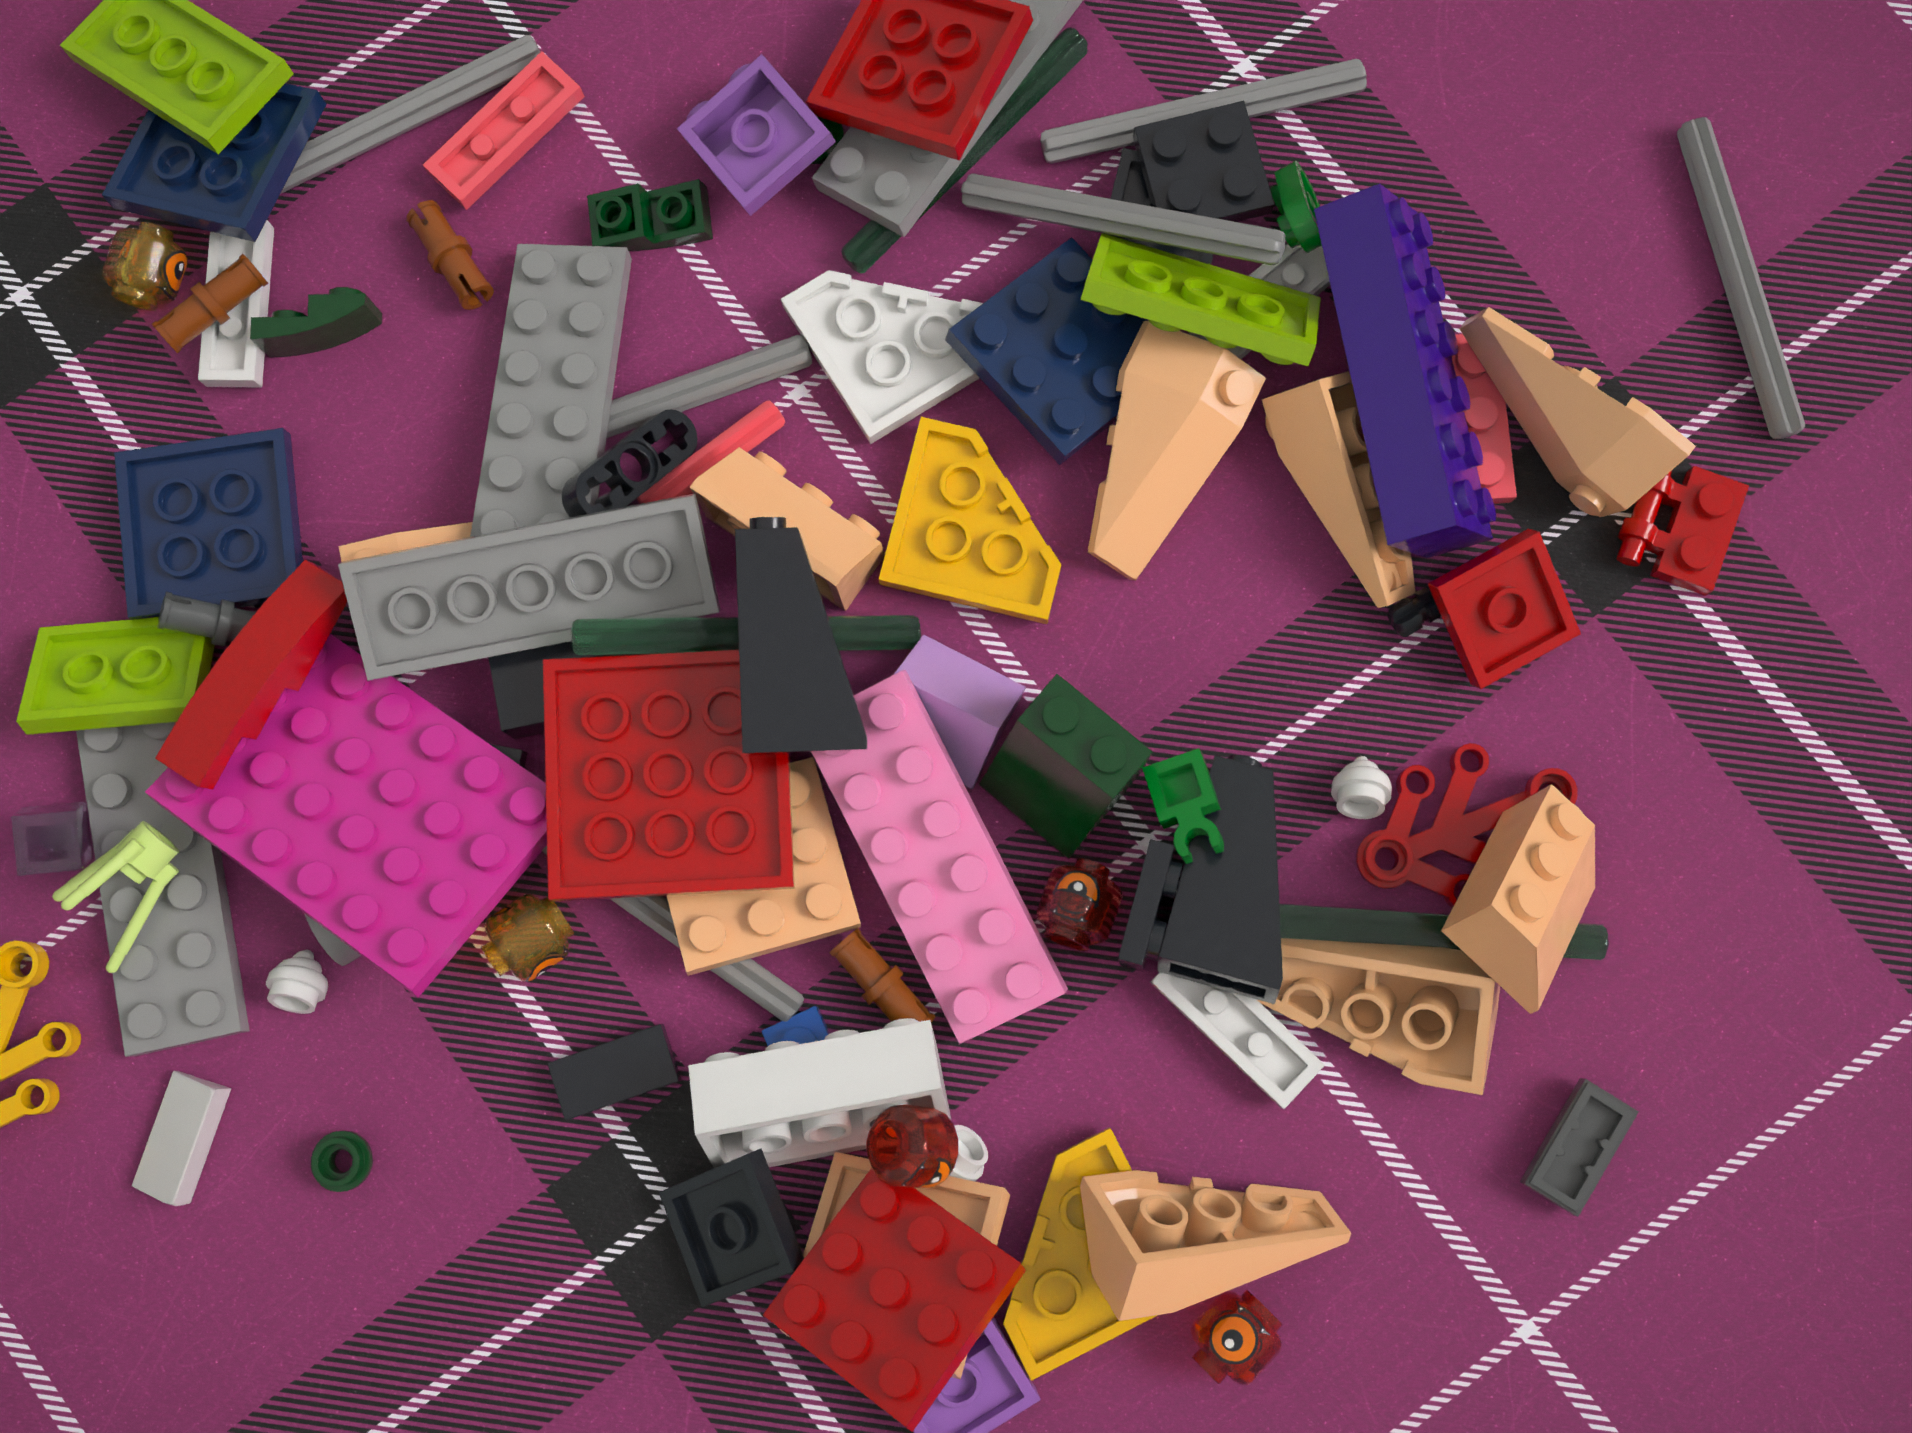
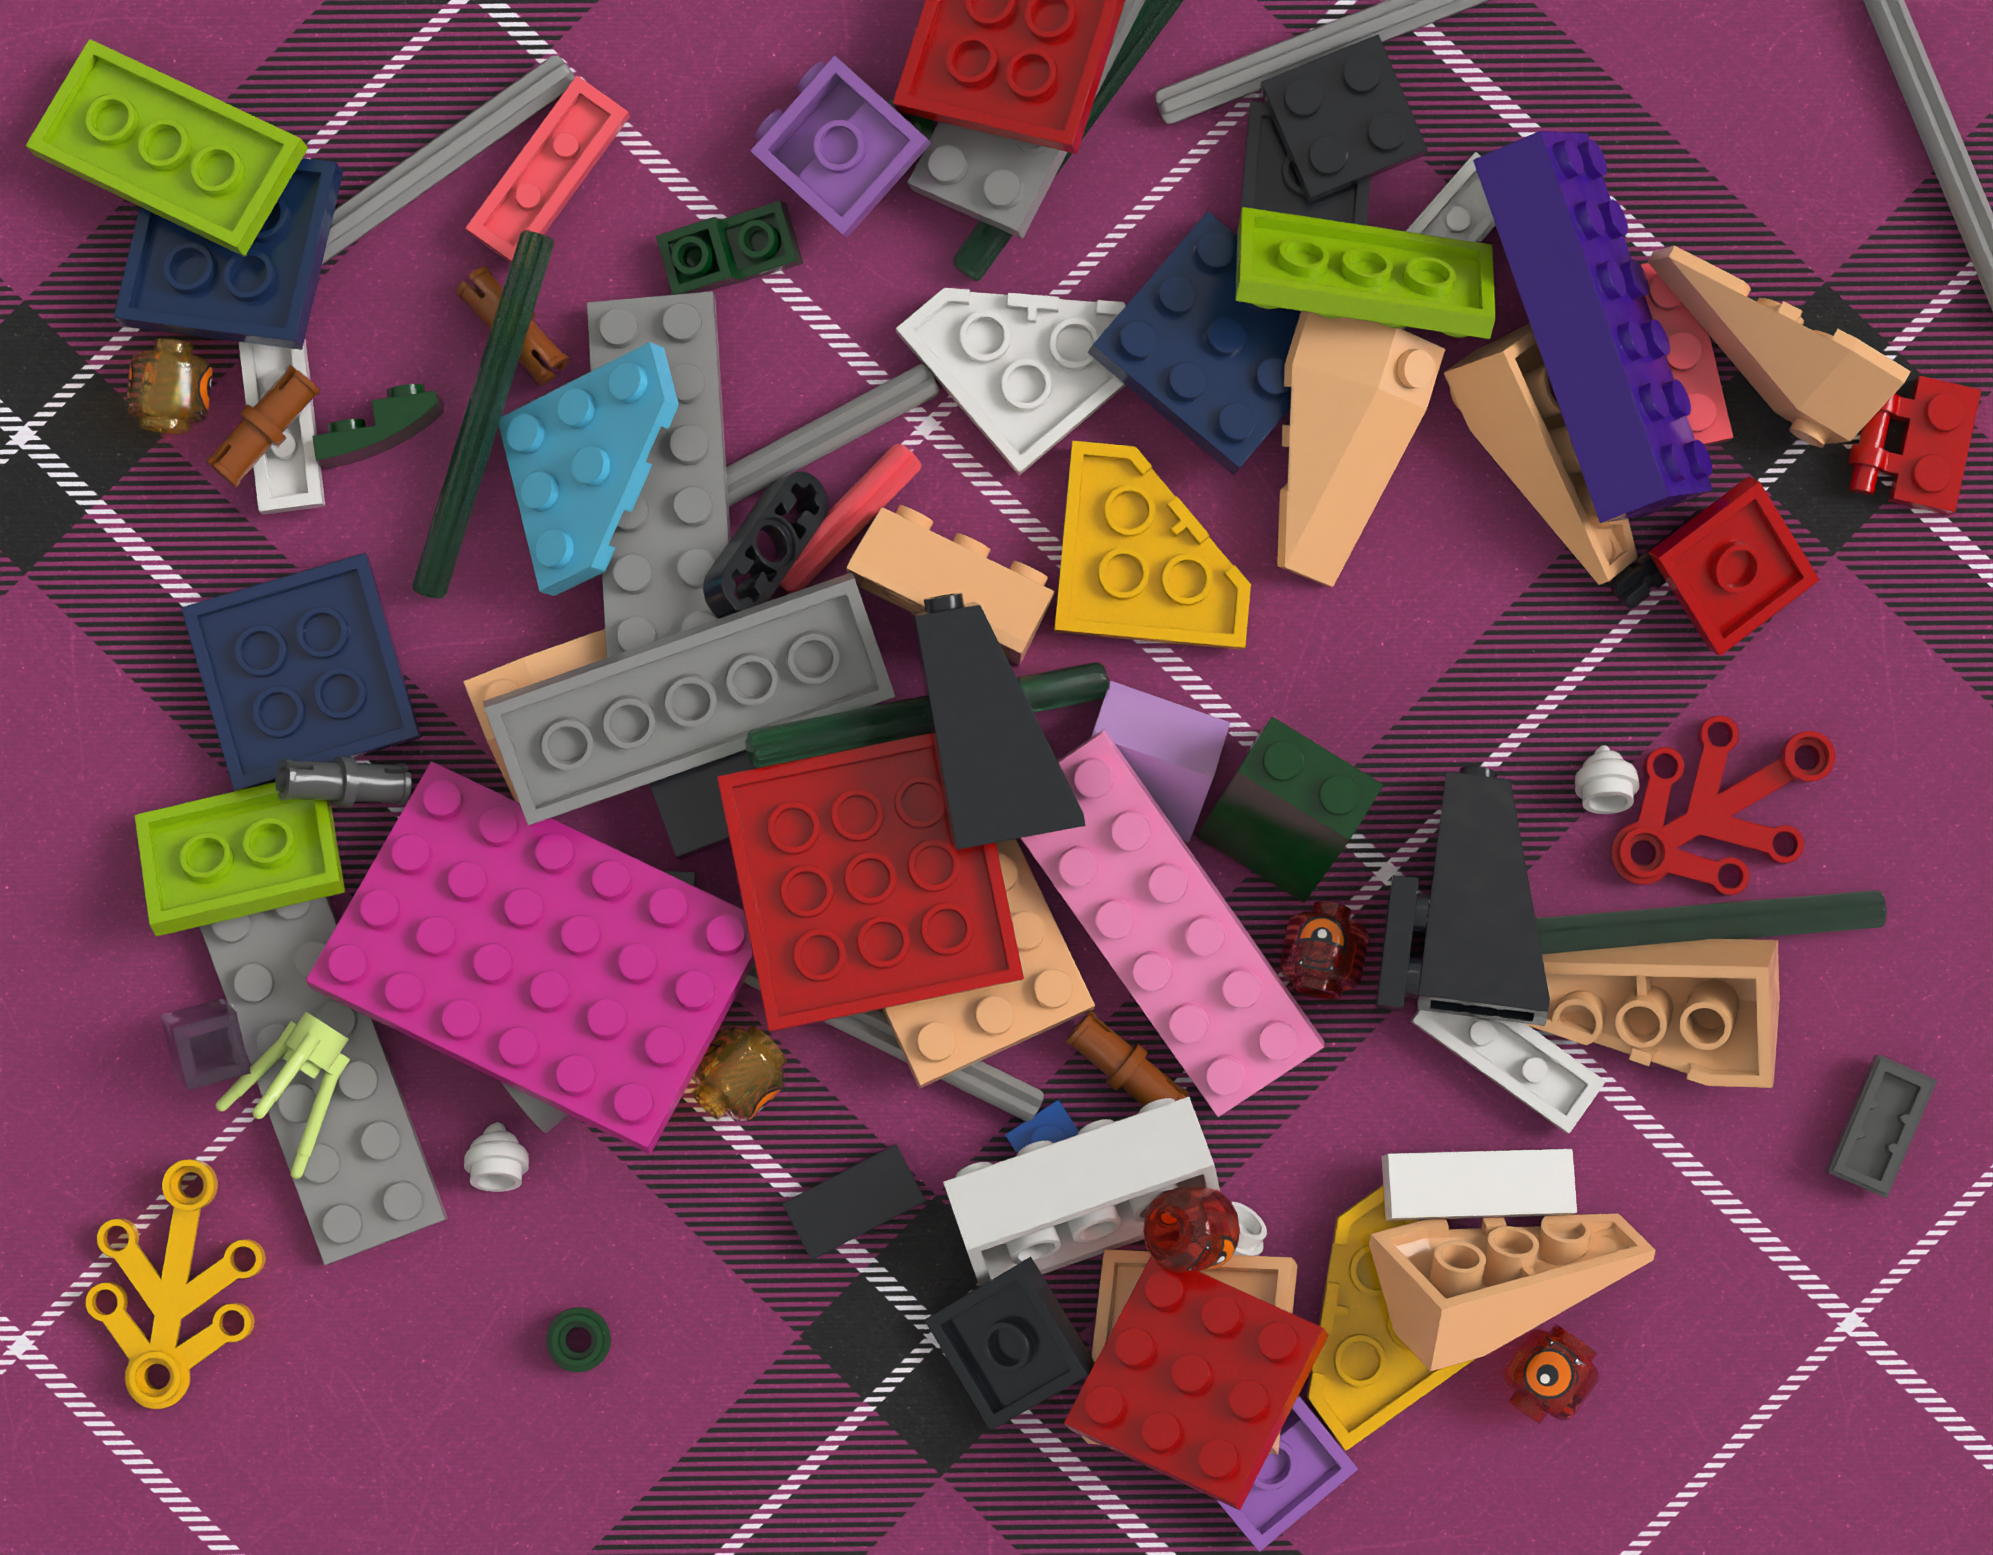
camera: 25 degrees left, 5 degrees up
(181, 1138) = (398, 1342): white slope -> none
(250, 675) = (404, 834): red slope -> none
(405, 322) = (483, 414): none -> clear green axle
(482, 369) = (583, 461): none -> medium azure plate
(1124, 219) = (1262, 190): light grey axle -> none
(1182, 796) = (1419, 822): green plate -> none
(1192, 1144) = (1479, 1184): none -> white tile
(1296, 203) = (1456, 145): green plate -> none
(1527, 895) = (1793, 873): light nougat slope -> none

